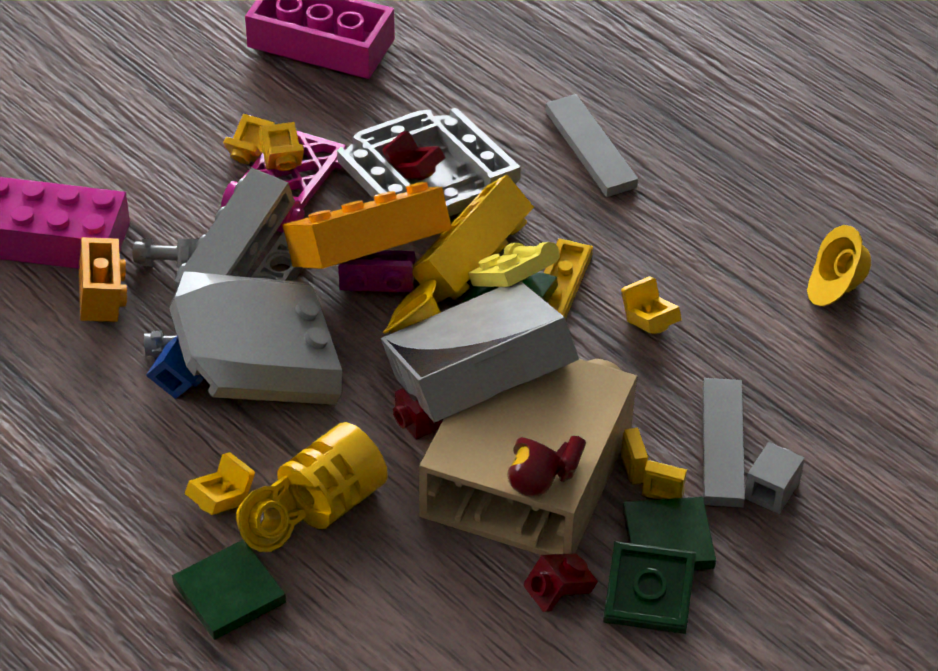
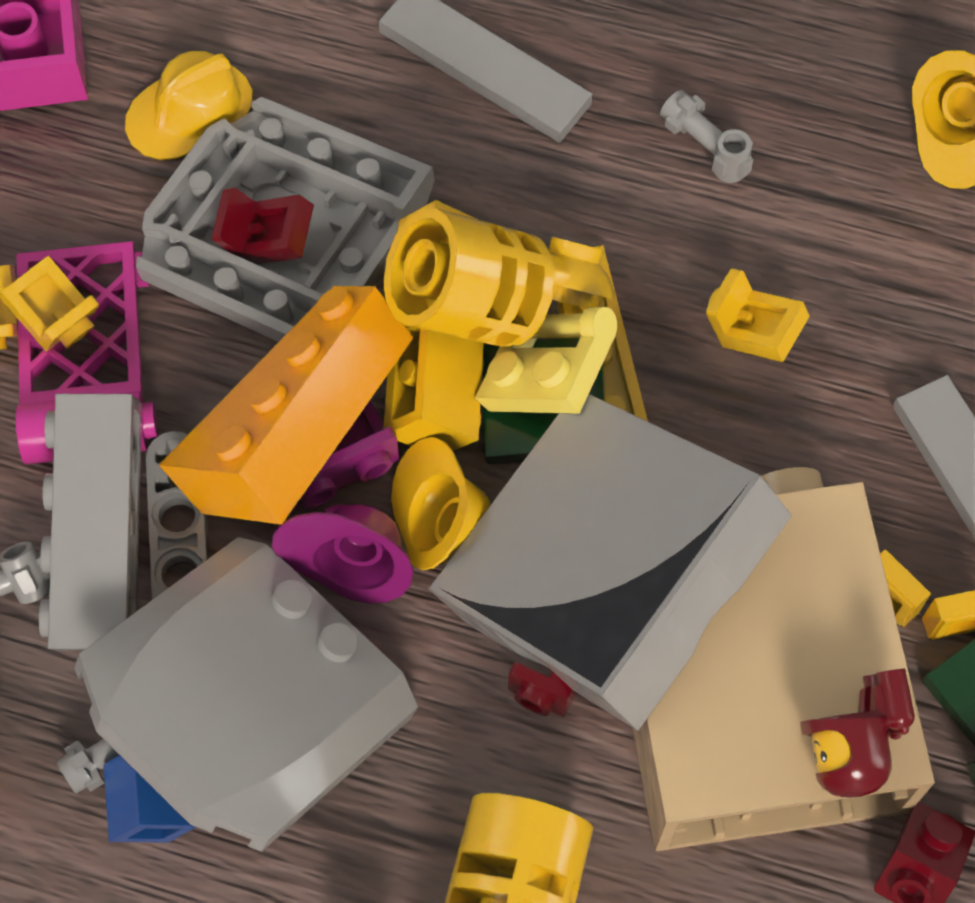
camera: 30 degrees left, 20 degrees up
(351, 308) = (347, 550): none -> magenta piece
(420, 92) = (184, 102): none -> yellow piece
(504, 209) = (485, 277): none -> yellow cylinder
(695, 230) = (730, 148): none -> light grey bar

